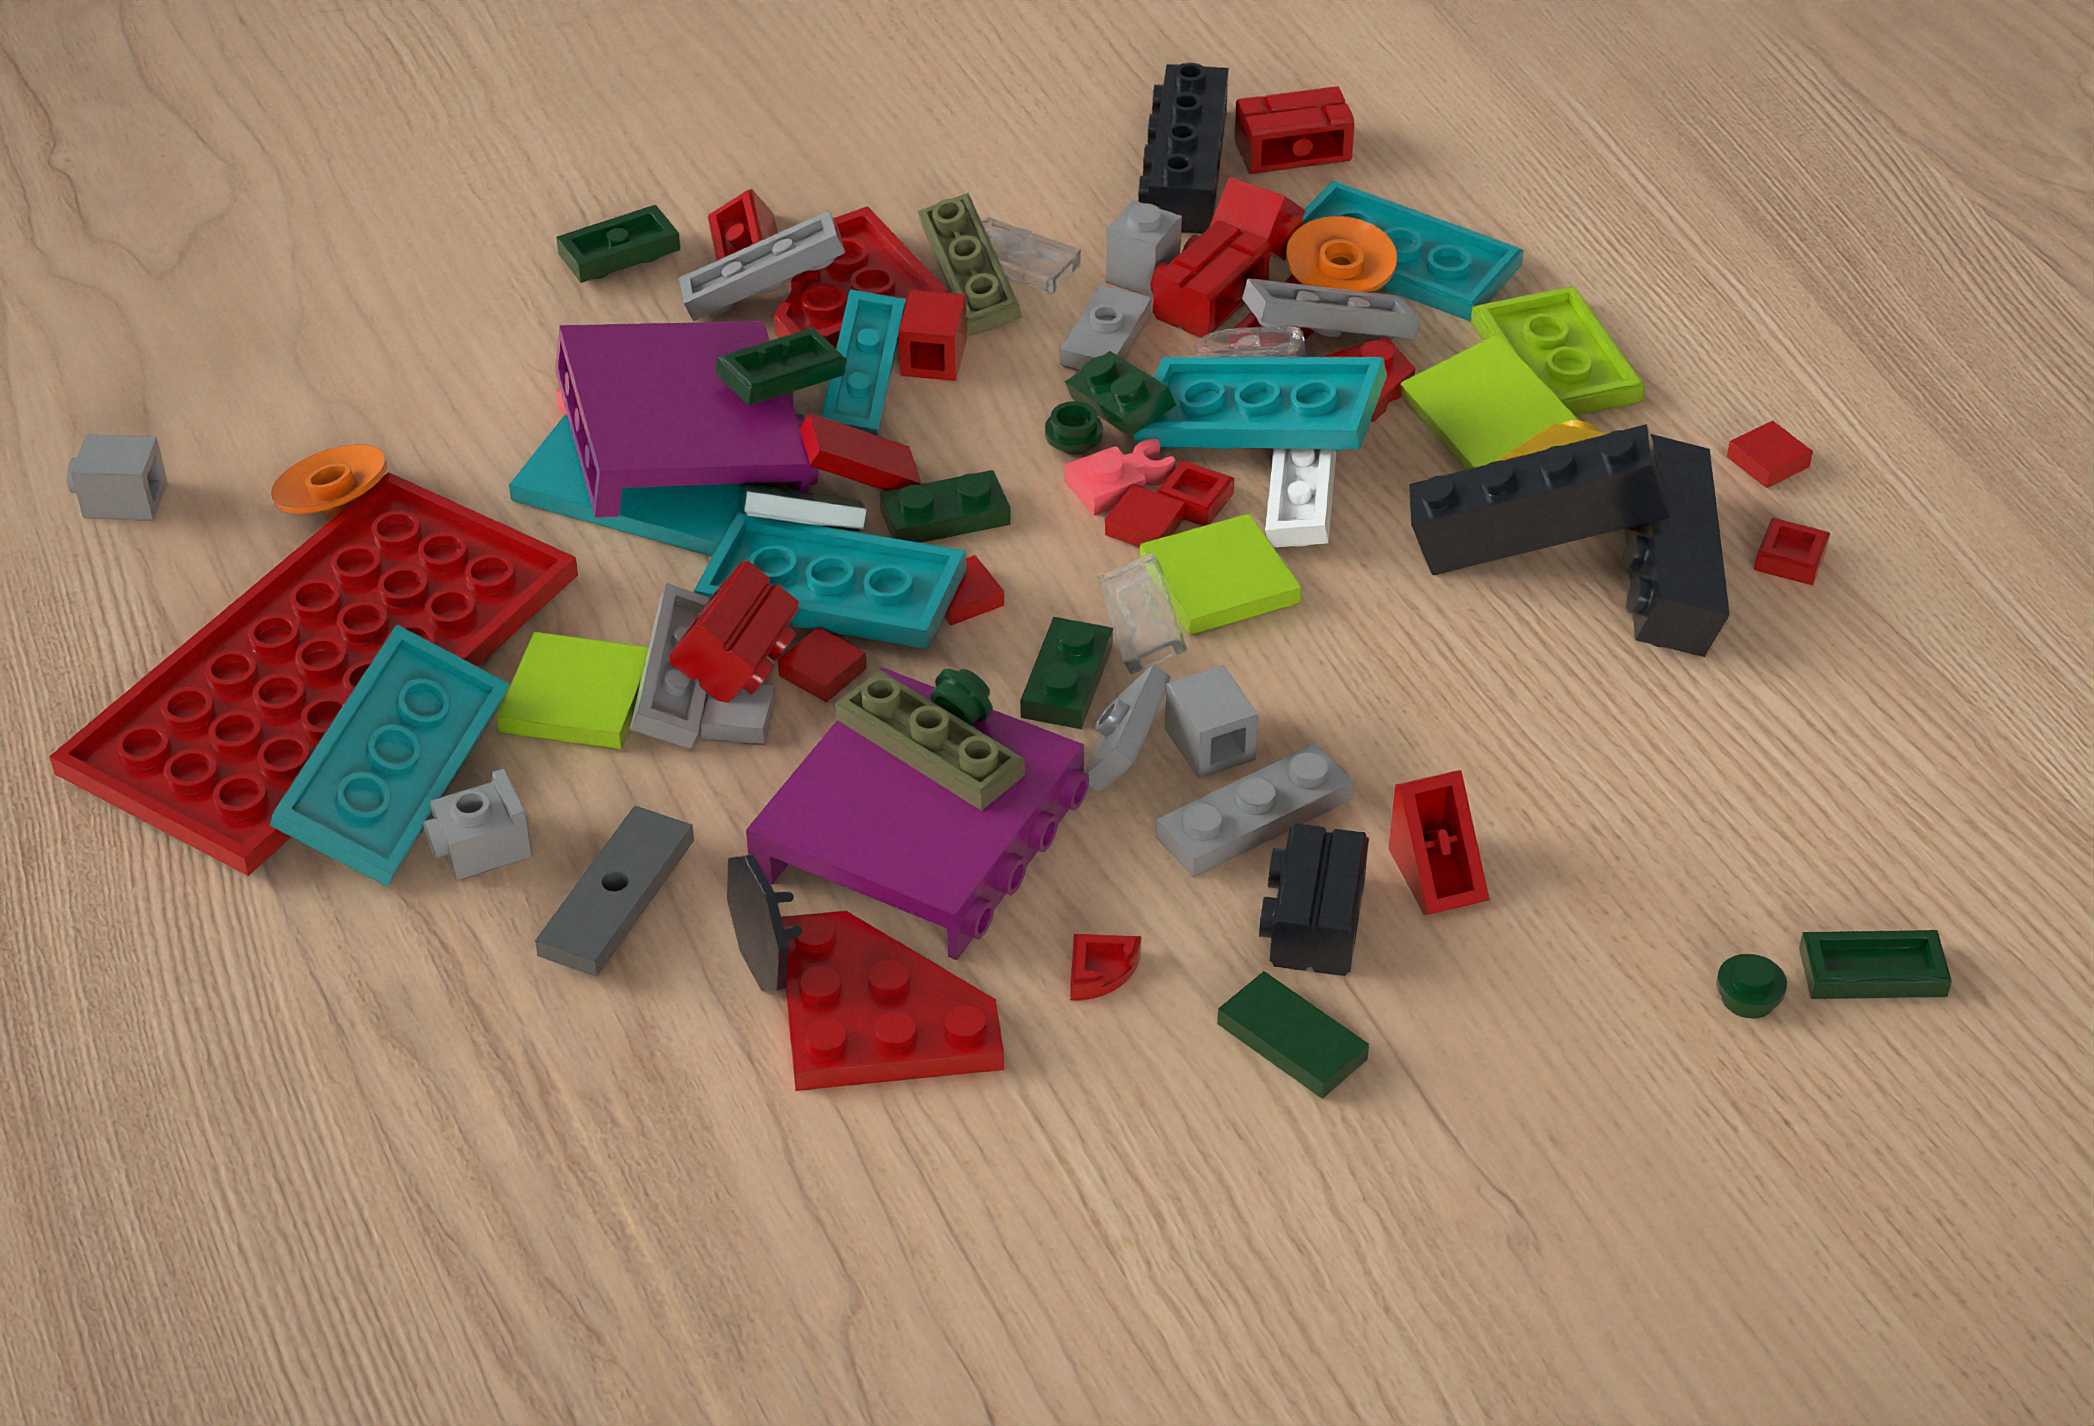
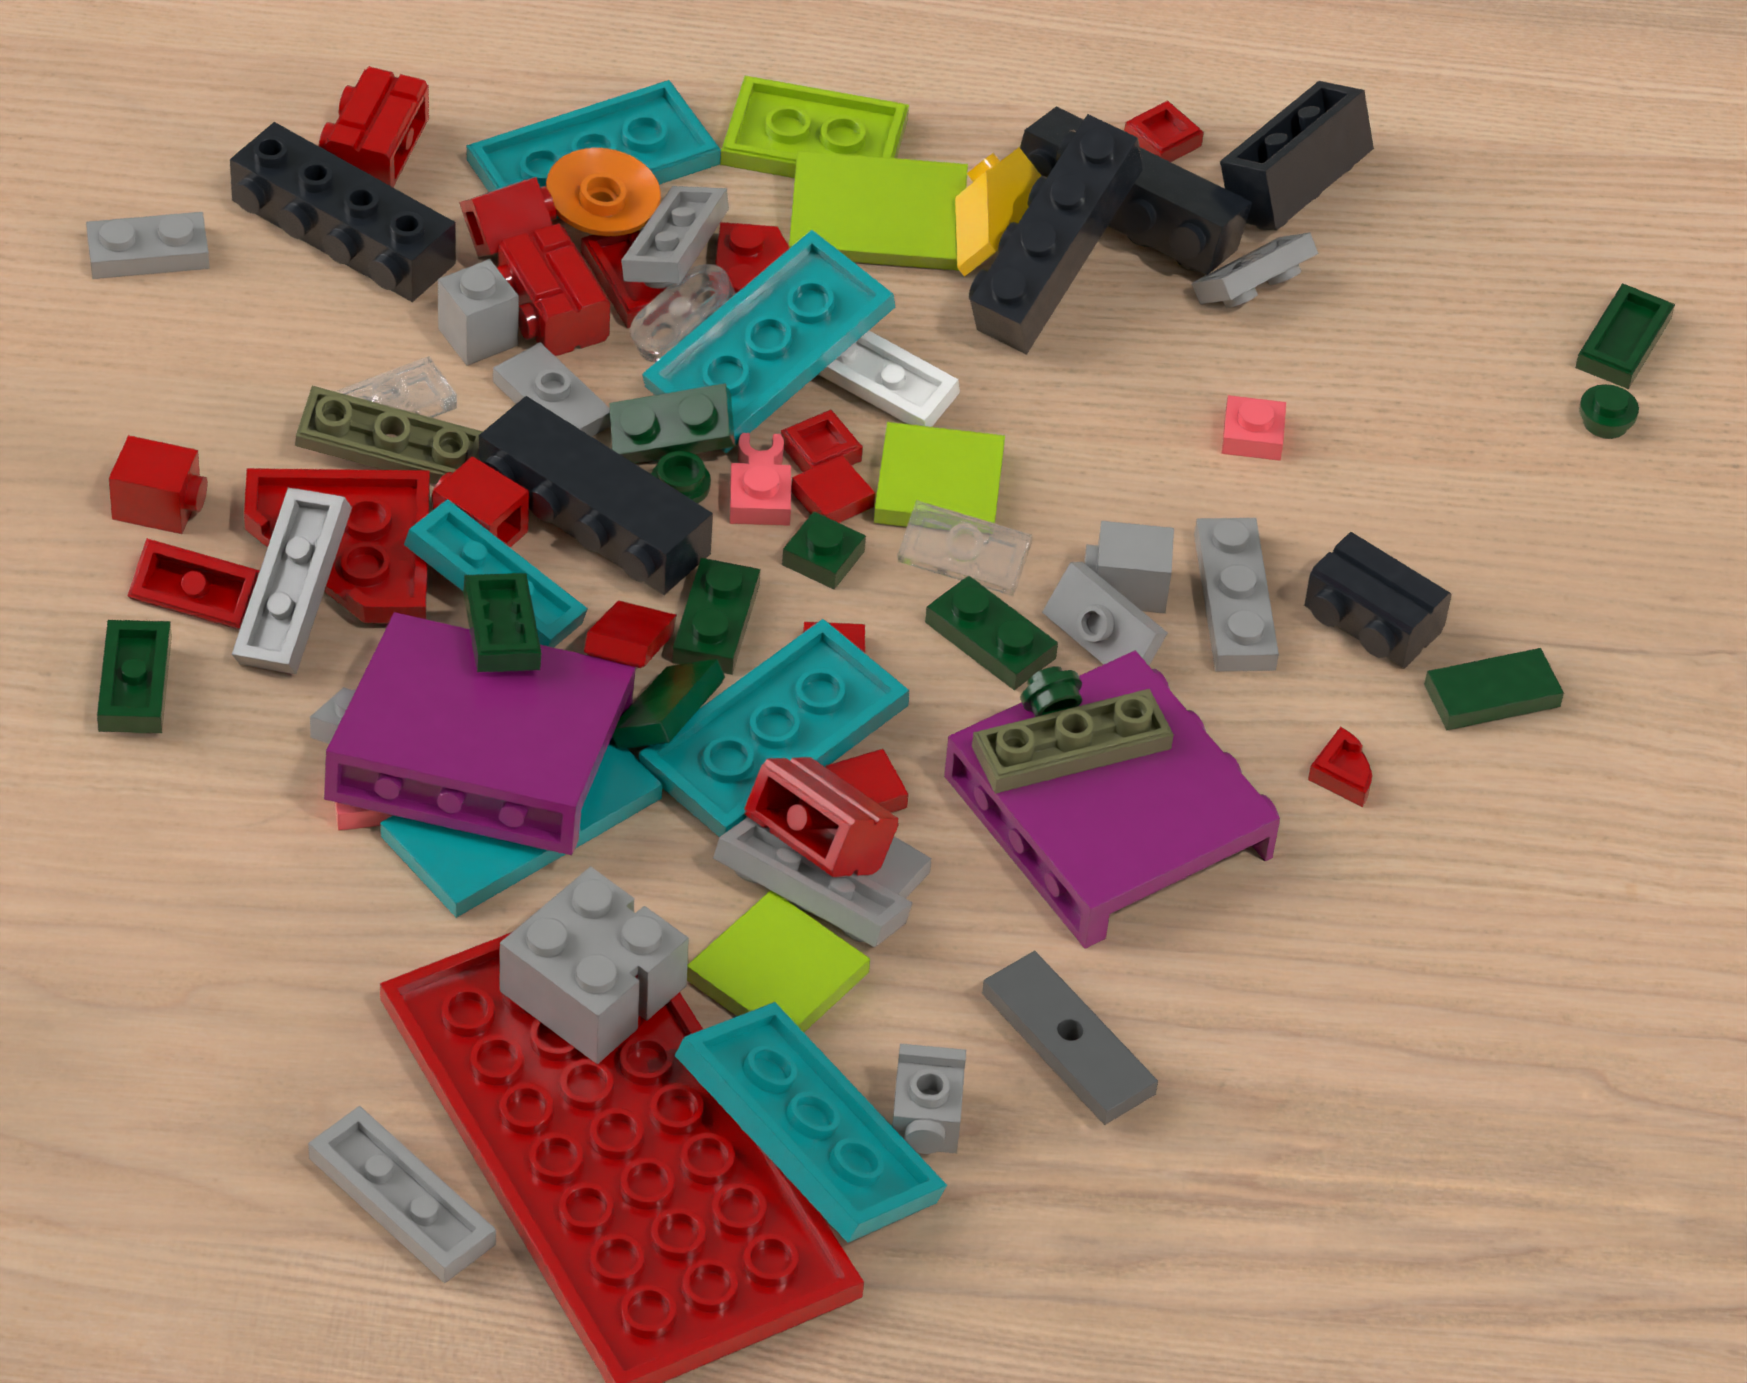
camera: 65 degrees left, 5 degrees up
(118, 477) = (211, 1201): light grey brick -> none
(189, 572) = (402, 1194): none -> light grey plate
(329, 479) = (343, 1014): orange dish -> none
(475, 540) = (580, 962): none -> light grey piece
(759, 922) = (1206, 946): black piece -> none
(815, 174) = (156, 485): none -> red brick
(879, 1010) = (1300, 928): red plate -> none
(993, 380) = (598, 495): none -> black brick
(1070, 84) = (147, 245): none -> light grey plate
(1073, 539) = (823, 550): none -> dark green plate
(1437, 843) = (1370, 503): red slope -> none
(1477, 744) = (1254, 427): none -> coral plate
(1693, 673) = (1271, 263): none -> light grey plate
(1769, 454) = (1042, 82): red tile -> none
(1834, 628) = (1299, 153): none -> black brick

